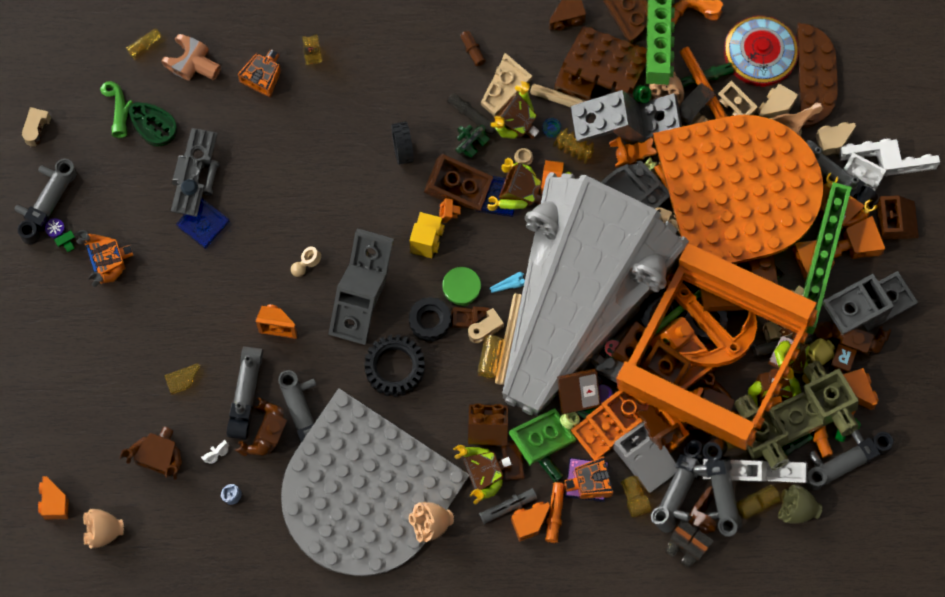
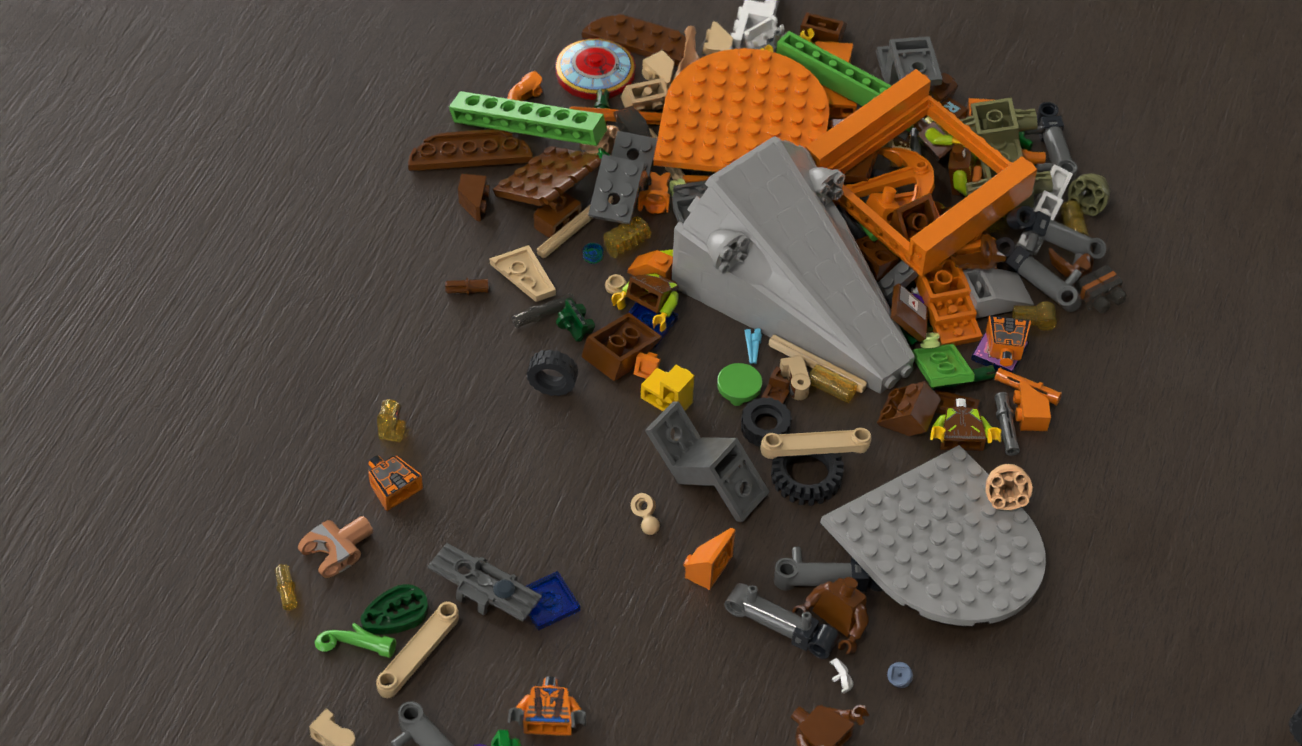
camera: 70 degrees left, 20 degrees down
(124, 151) = (417, 649): none -> tan piece
(181, 379) = (735, 682): clear yellow tile -> none
(414, 361) = (815, 443): none -> tan piece
(516, 115) = (568, 269): torso -> none

